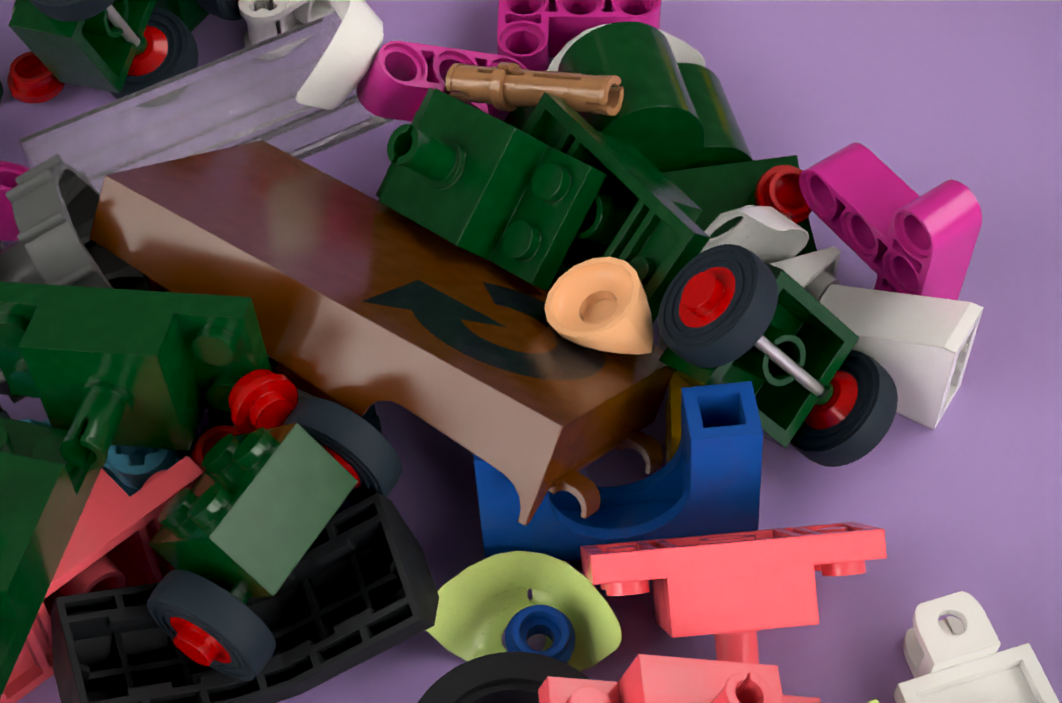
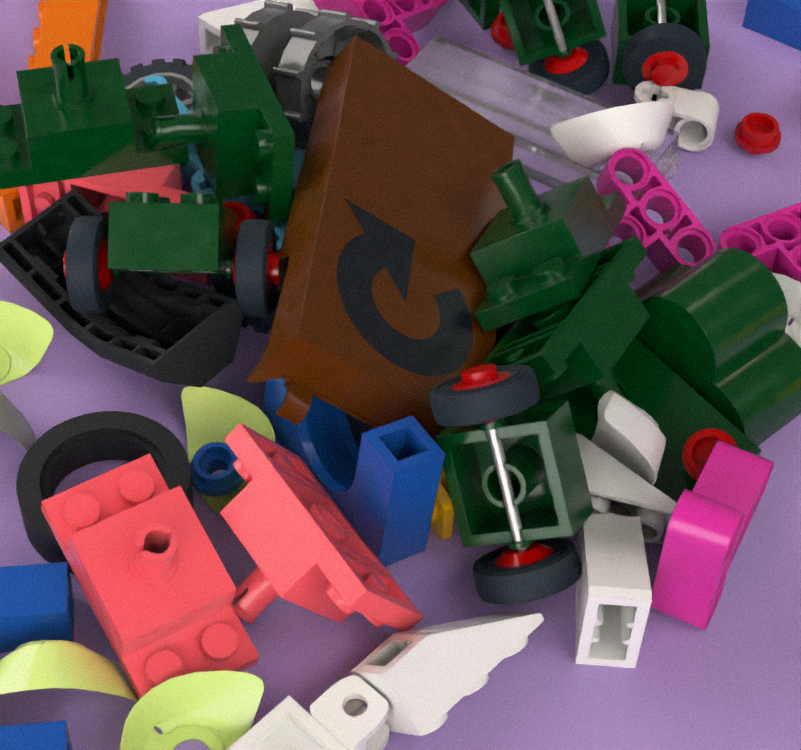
camera: 60 degrees right, 5 degrees down
(261, 400) = (256, 200): red plate -> none
(514, 87) = (655, 233): medium nougat pin -> none
(602, 307) = (460, 344): light nougat piece -> none
(923, 534) = (437, 665): none -> white slope

